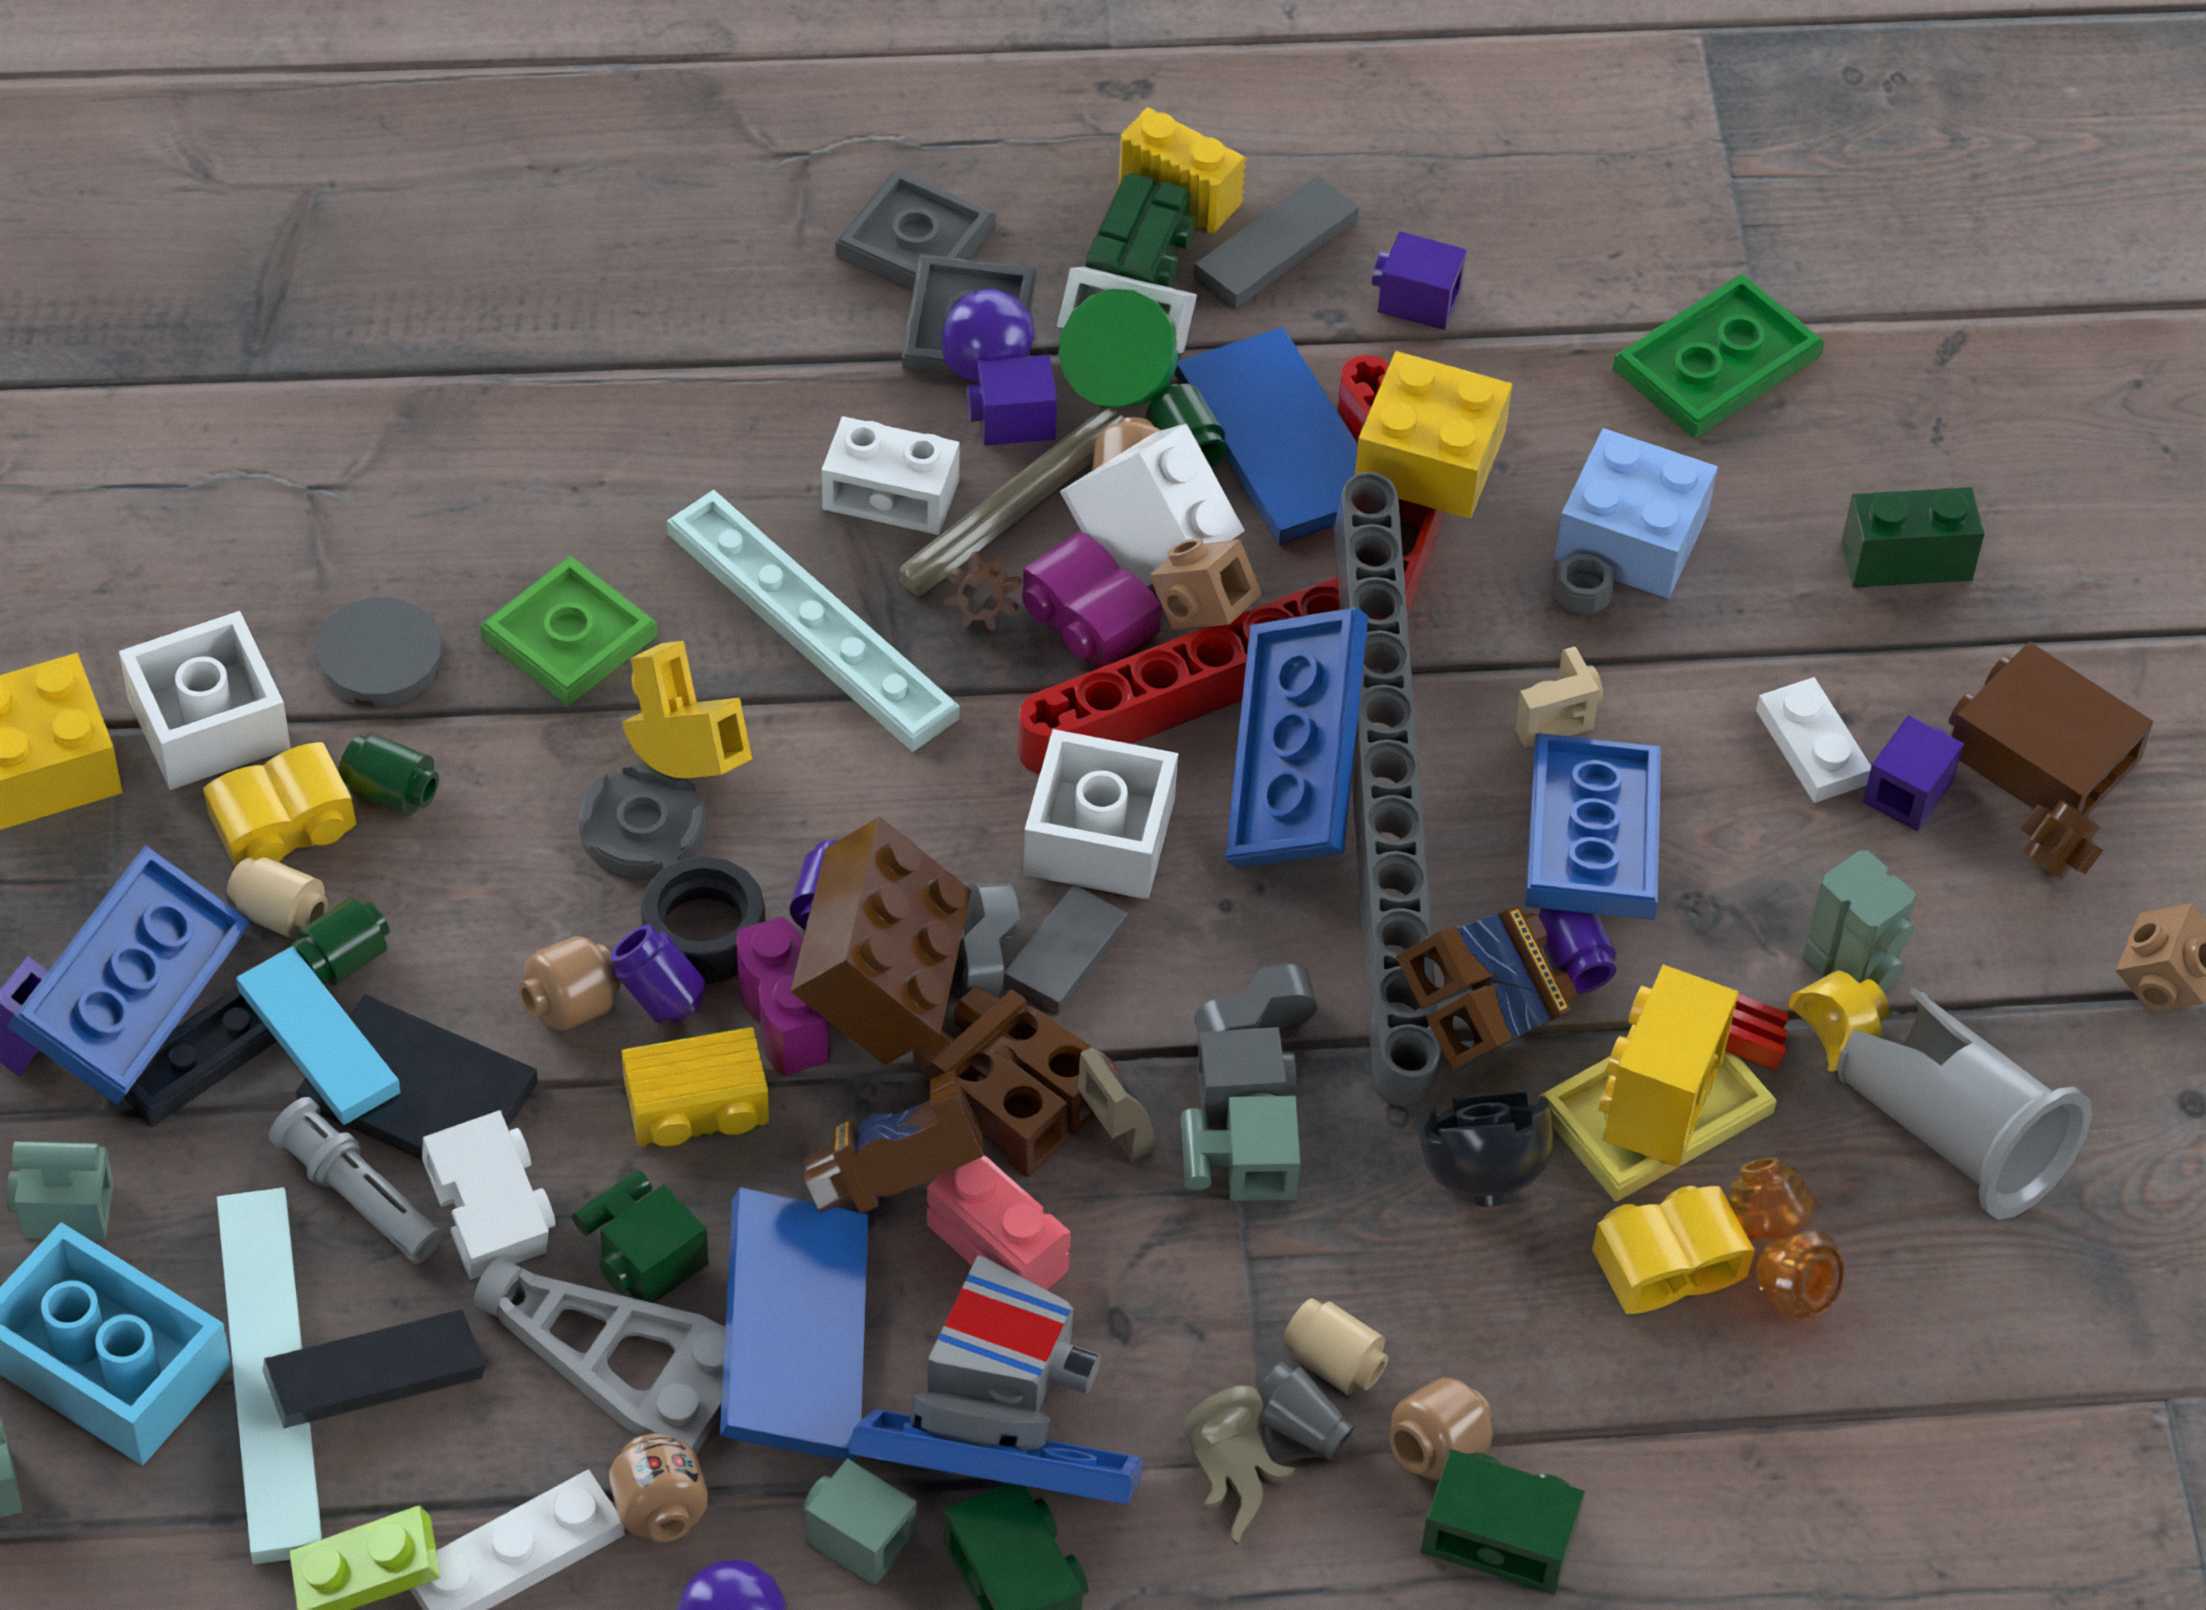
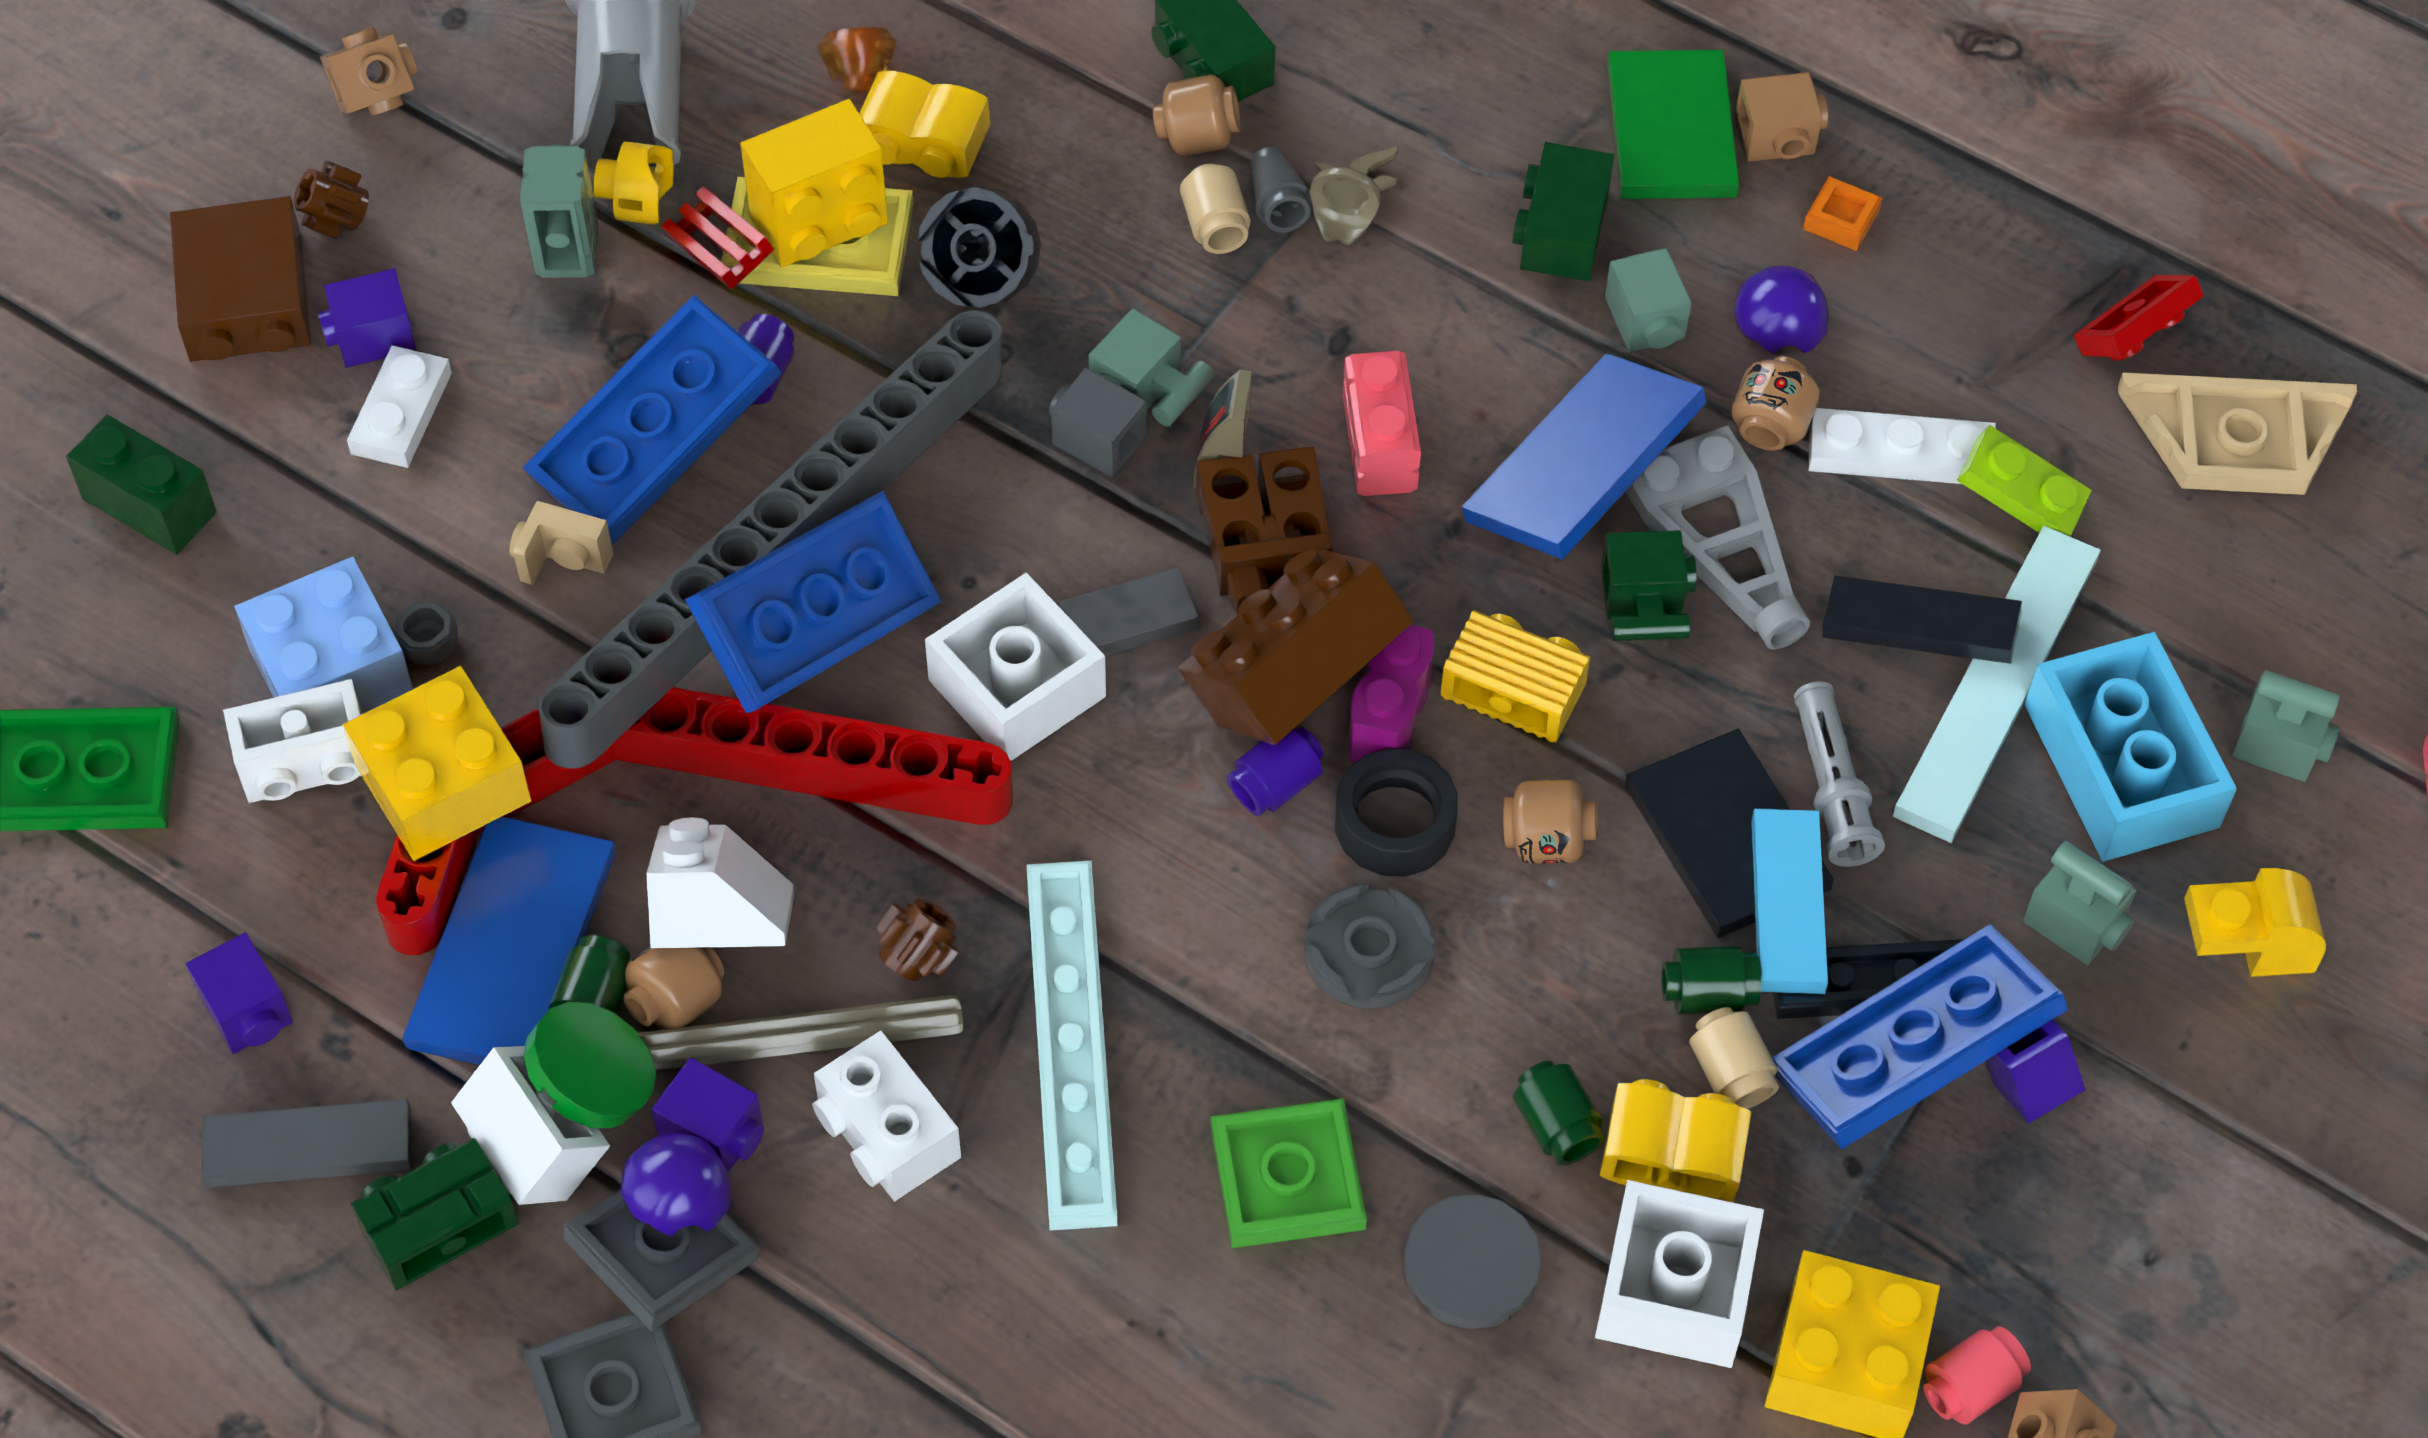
camera: 140 degrees left, 5 degrees up
(484, 1176) = (1748, 679): white brick -> none
(658, 974) = (1479, 766): dark purple brick -> none
(675, 730) = (1282, 969): yellow brick -> none
(896, 1150) = (1419, 488): reddish brown hips -> none
(979, 1420) = (1517, 288): dark grey tile -> none
(988, 921) = (1174, 639): dark grey piece -> none
(1008, 1341) = (1450, 347): torso -> none
(1052, 1467) = (1527, 260): blue tile -> none
(1090, 600) = (834, 877): magenta brick -> none
(1180, 156) = (319, 1259): yellow brick -> none
(1205, 583) = (755, 761): medium nougat brick -> none
(1274, 998) = (1030, 465): dark grey piece -> none
(1508, 978) = (870, 334): reddish brown hips -> none
(1562, 431) = (293, 741): none -> white brick
(1771, 1199) = (825, 86): clear orange cone -> none

